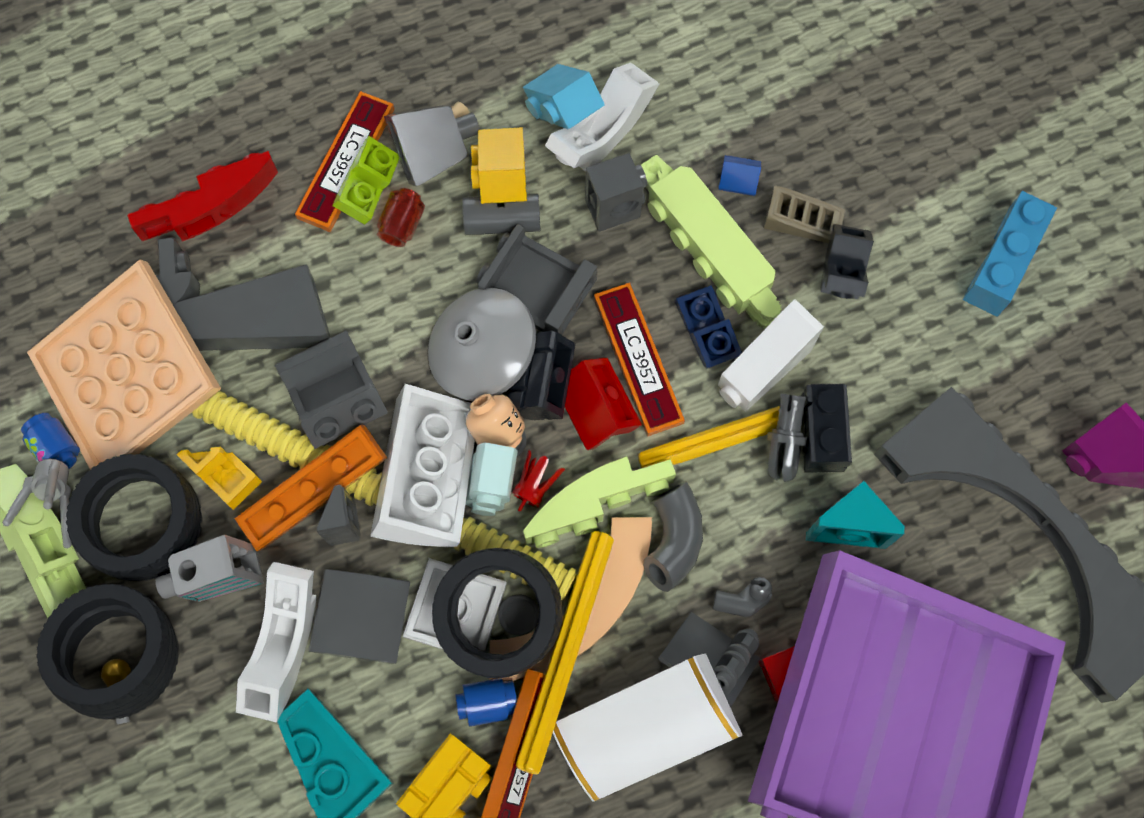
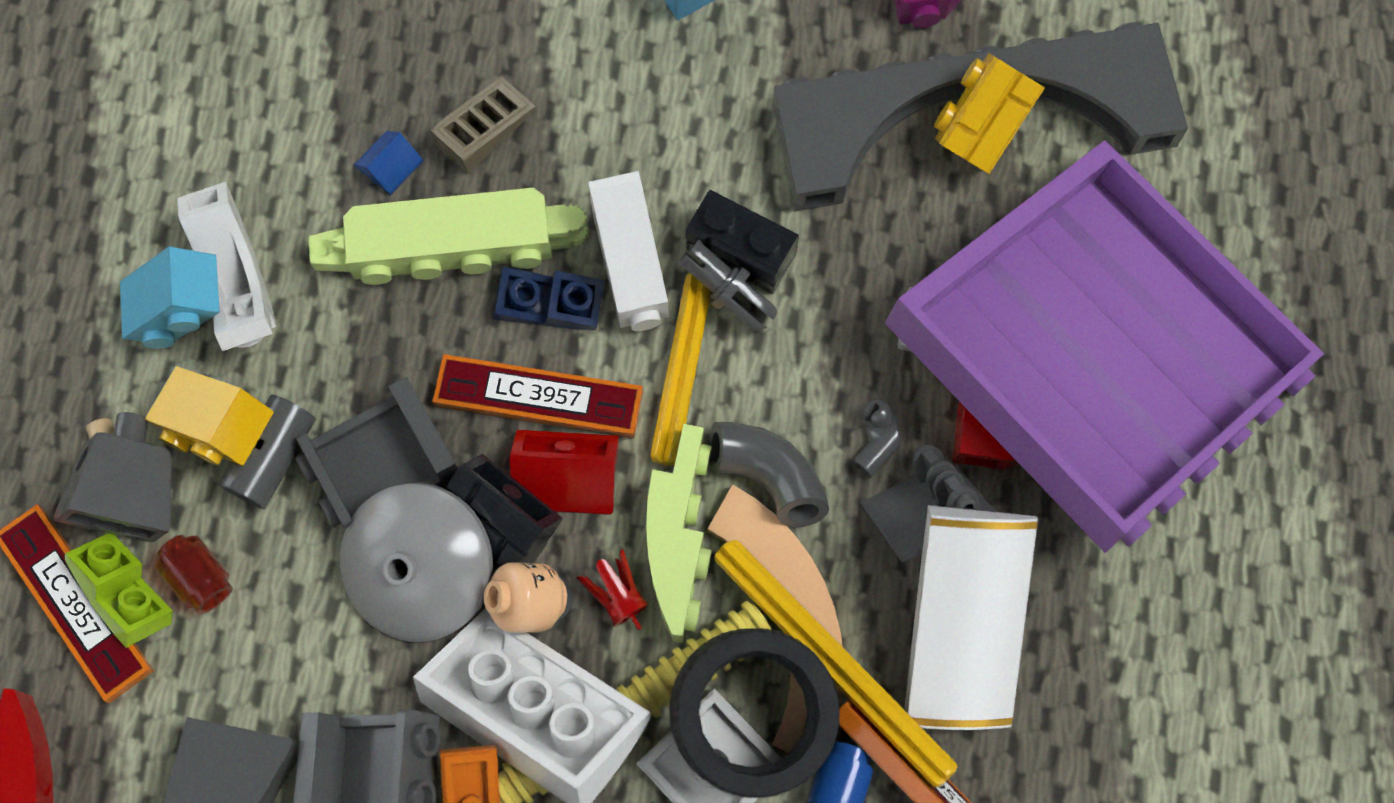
camera: 60 degrees left, 0 degrees up
(491, 478) = (591, 635): light aqua brick -> none
(518, 615) = (758, 696): dark grey piece -> none
(615, 191) = (328, 305): dark grey brick -> none
(847, 262) = (567, 110): black brick -> none
(858, 521) = (863, 264): teal slope -> none
(1030, 546) = (987, 112): none -> yellow brick

